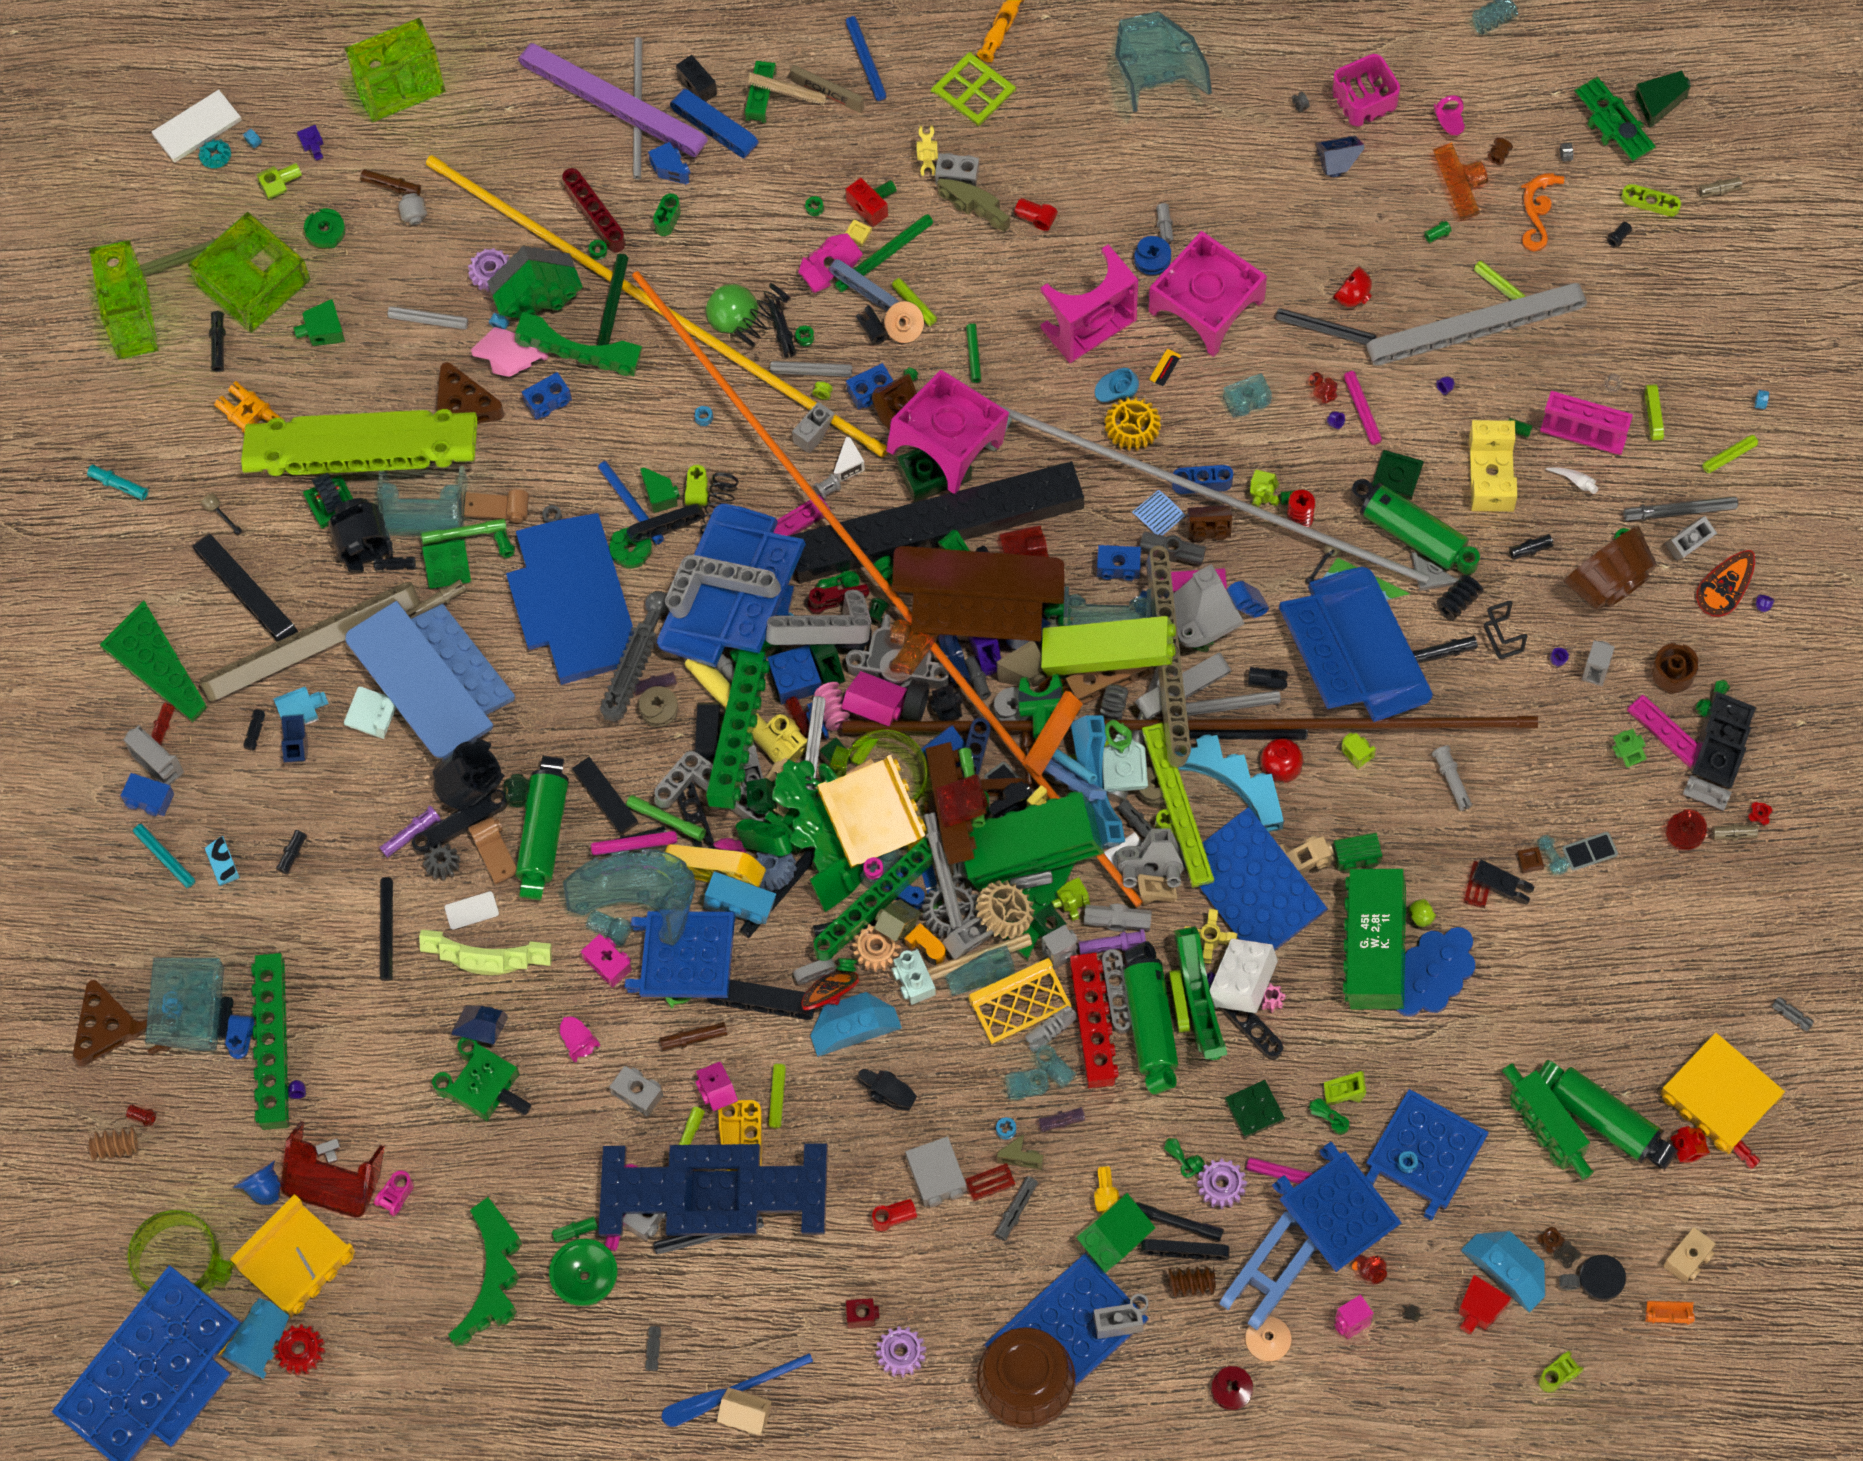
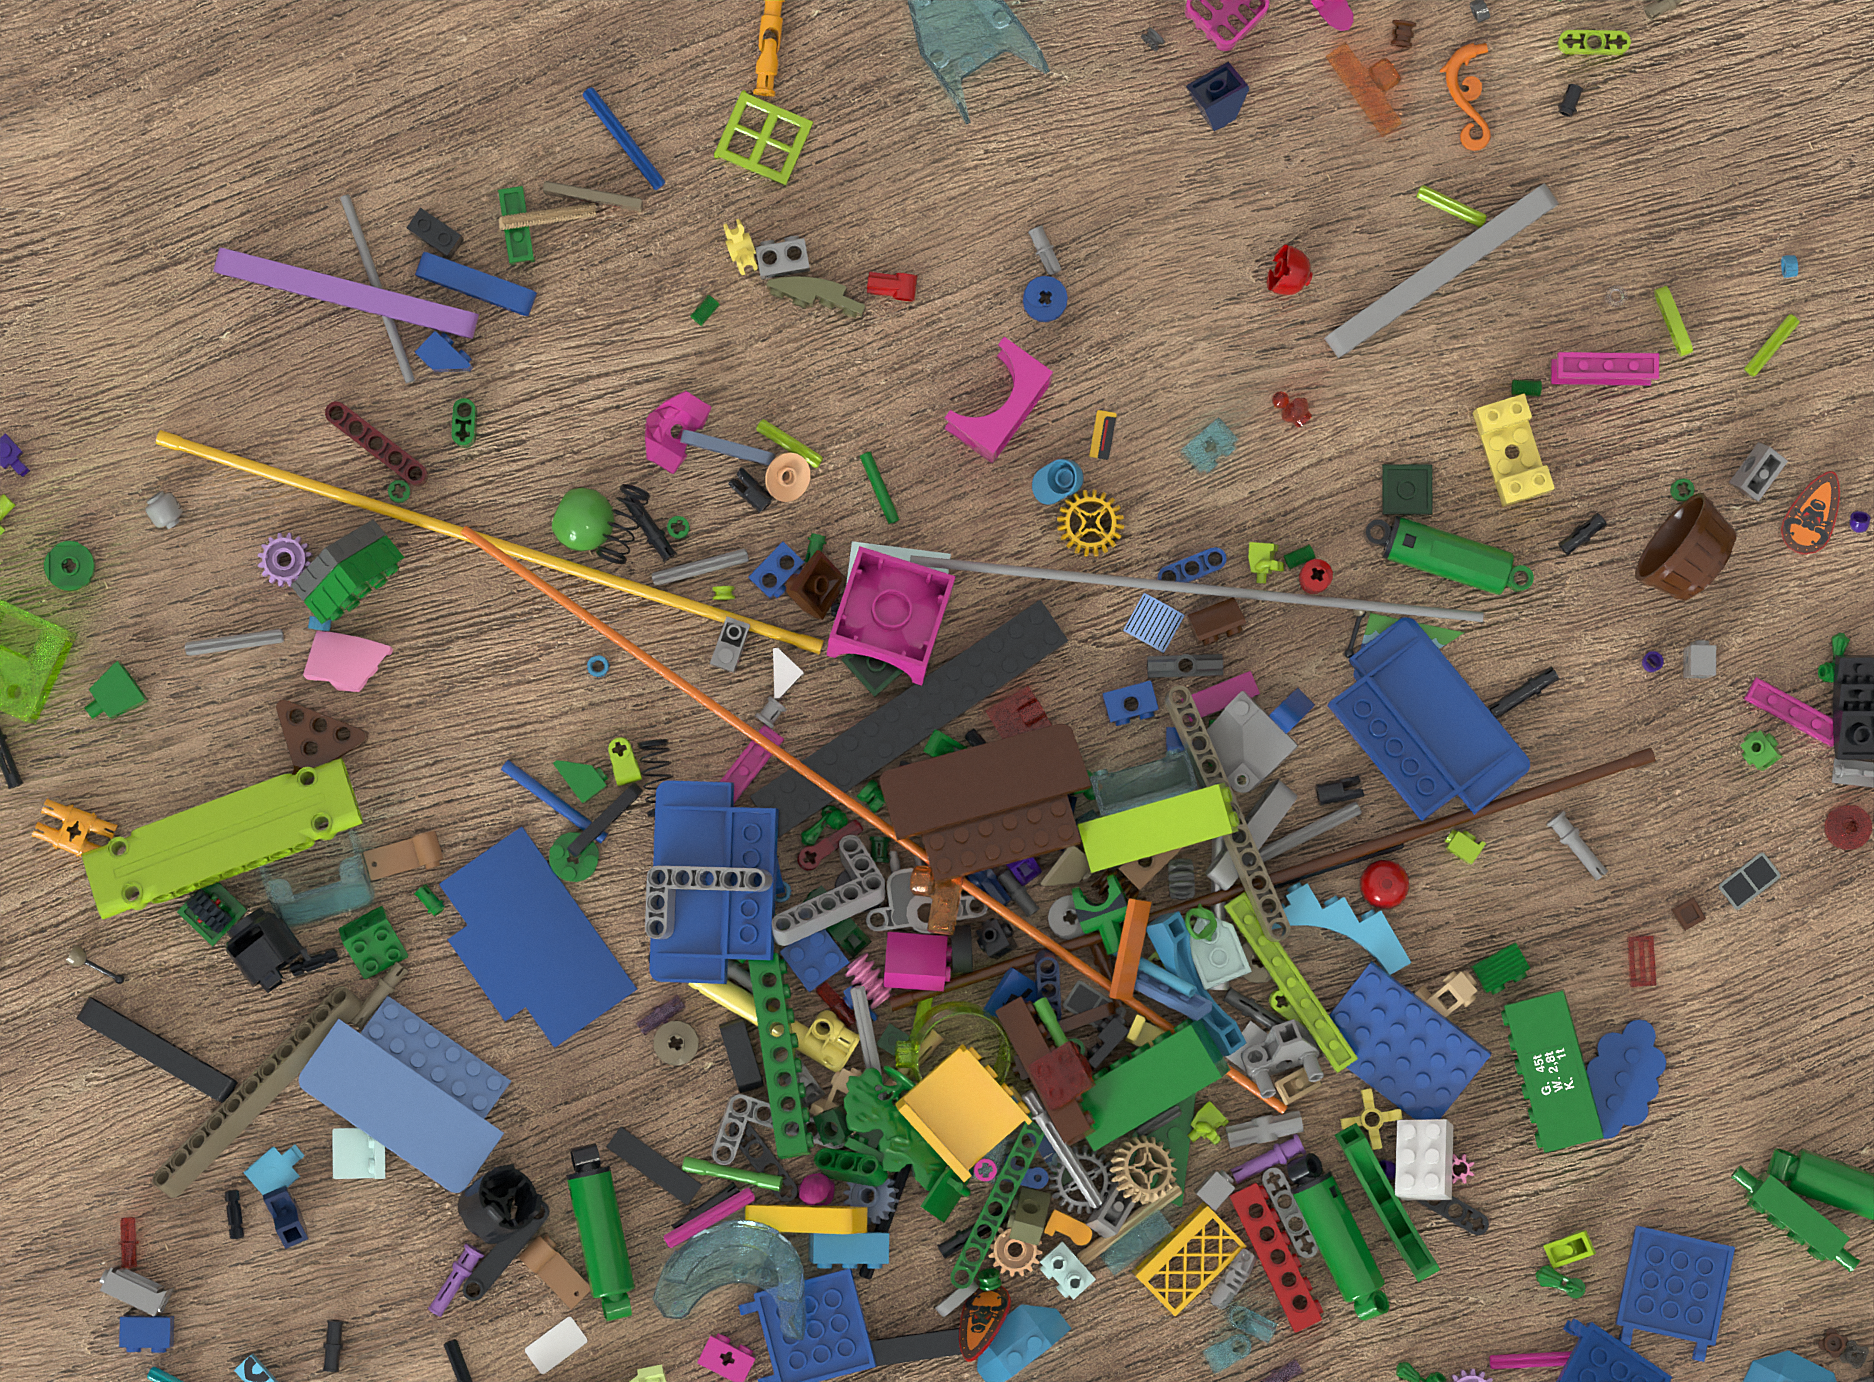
camera: 20 degrees left, 20 degrees up
(148, 655) = (79, 1164): green wing -> none
(398, 185) = (124, 482): reddish brown pin -> none
(406, 68) = (88, 340): clear neon green piece -> none
(440, 535) = (402, 887): bright green piece -> none
(440, 854) = (510, 1298): dark grey gear -> none
(516, 790) = (555, 1193): clear green head -> none
(543, 392) = (405, 696): blue brick -> none
(551, 508) = (478, 846): dark grey bush -> none
(612, 299) = (442, 558): dark green axle -> none
(615, 929) = (721, 1320): clear light blue piece -> none
(619, 356) = (478, 625): green arch -> none
(634, 659) = (631, 922): dark grey gear -> none
(818, 202) = (632, 347): green bush -> none
(859, 232) = (693, 373): light yellow tile -> none
(866, 202) = (691, 334): red brick -> none
(889, 248) = (736, 385): green axle -> none
(1050, 914) = (1183, 1161): dark green brick -> none
(1179, 1001) = (1361, 1203): lime beam -> none
(1207, 289) = (1126, 334): dark pink piece -> none
(1254, 1109) = (1478, 1298): dark green plate -> none
(1324, 326) = (1270, 326): black axle -> none
(1336, 419) = (1318, 443): dark purple hinge -> none
(1362, 407) = (1343, 417): dark pink axle -> none
(1411, 1155) = (1667, 1317): dark azure axle -> none
(1422, 912) = (1591, 1018): lime piece -> none
(1438, 231) = (1362, 162): green pin -> none
(1438, 577) = (1481, 601): light grey tile -> none
(1445, 384) = (1429, 359): dark purple hinge -> none
(1458, 596) = (1521, 625): black piece -> none
(1494, 621) = (1595, 673): black piece -> none
(1501, 882) = (1664, 953): black hinge -> none
(1558, 864) = (1721, 911): clear light blue bar -> none
(1580, 479) = (1611, 429): white bar -> none
(1675, 668) = (1798, 636): reddish brown brick -> none
(1680, 508) = (1734, 433): dark grey axle -> none

